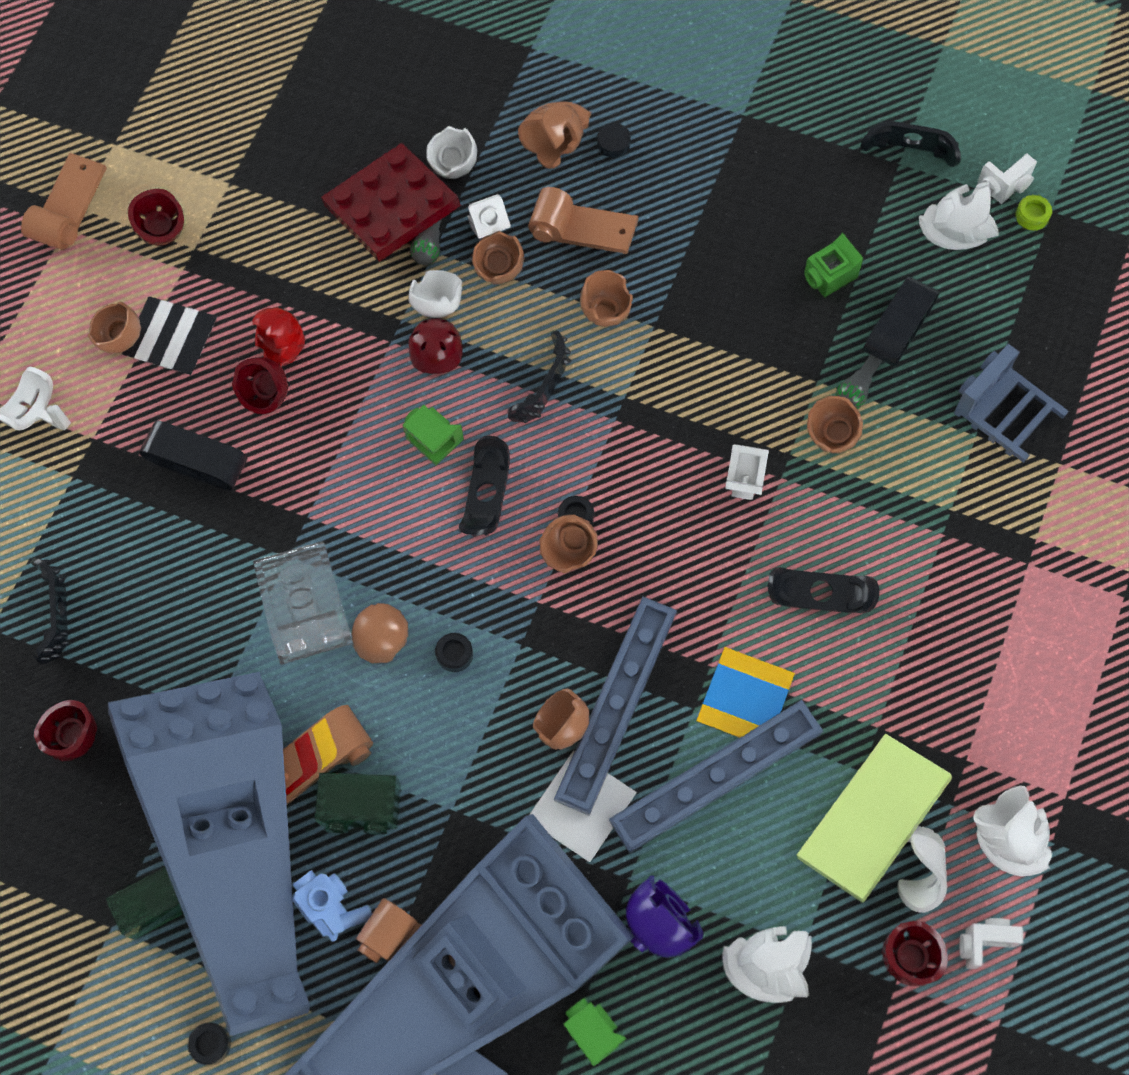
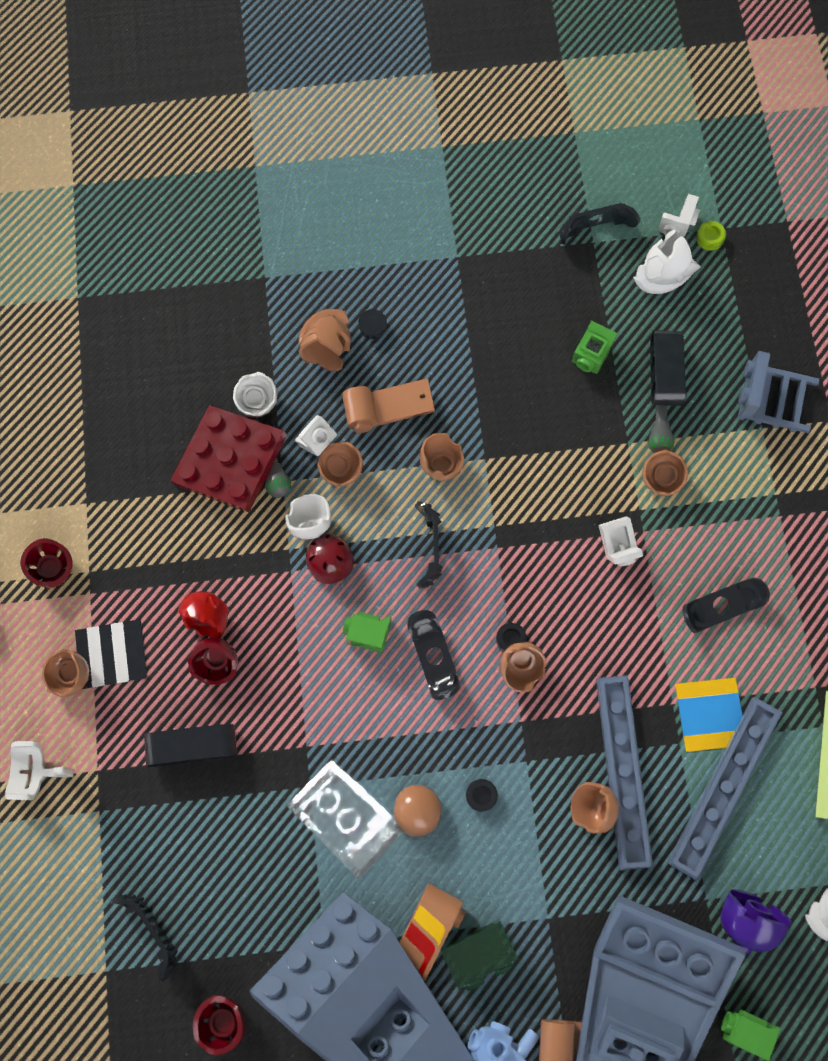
camera: 30 degrees left, 5 degrees up
(575, 829) = (643, 883): white sticker -> none

